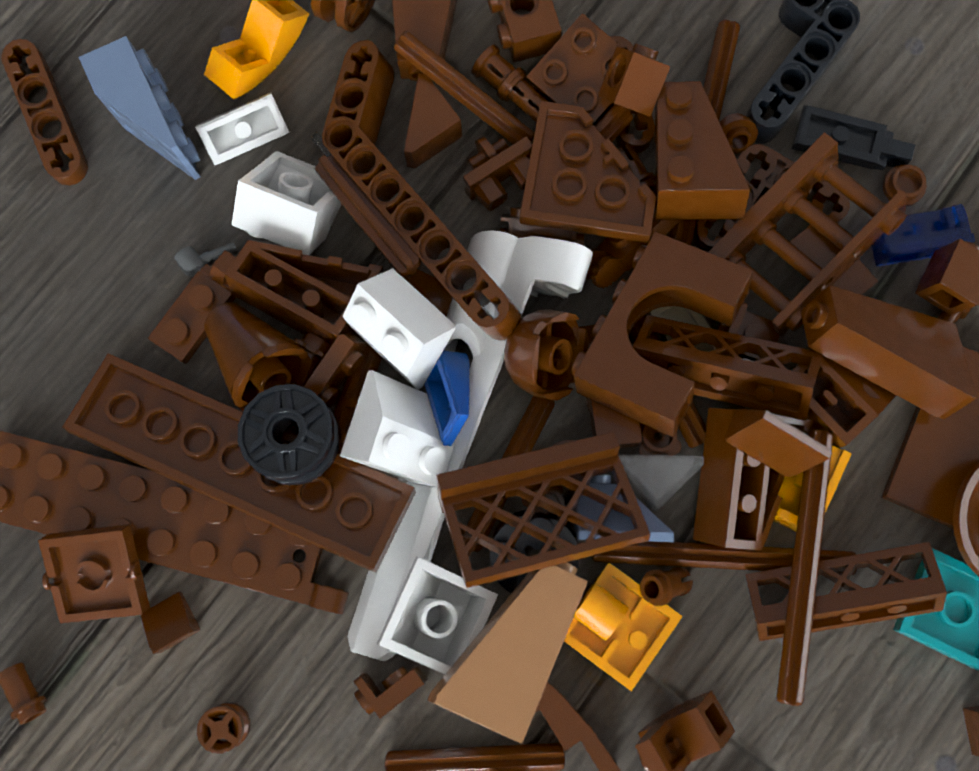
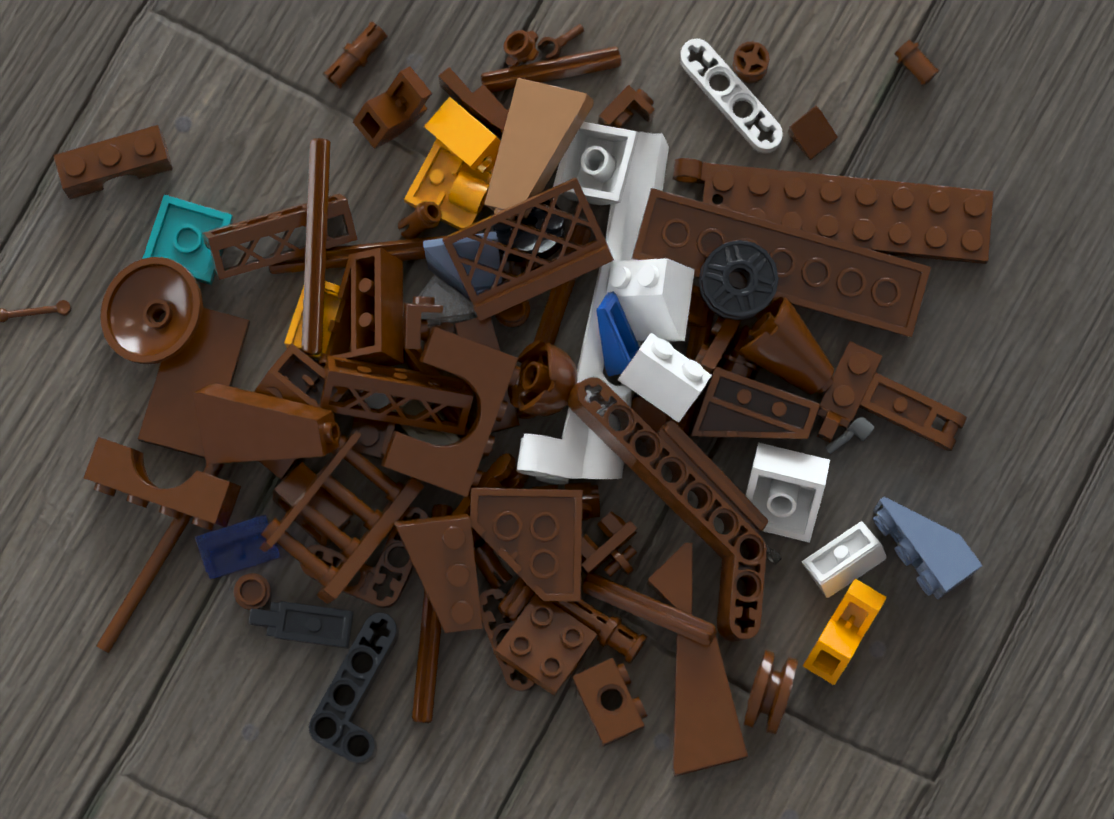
camera: 170 degrees right, 0 degrees up
(47, 110) = (1029, 542): reddish brown beam -> none
(94, 574) = (877, 157): reddish brown plate -> none
(129, 271) = (912, 411): none -> reddish brown plate
(251, 692) = (735, 92): none -> white beam
(597, 685) = (464, 135): none -> light orange hinge
(634, 79) = (502, 625): reddish brown brick -> none
(689, 457) = (414, 327): none -> reddish brown bracket
(739, 131) = (406, 610): reddish brown plate -> none
(774, 442) = (352, 331): reddish brown slope -> none

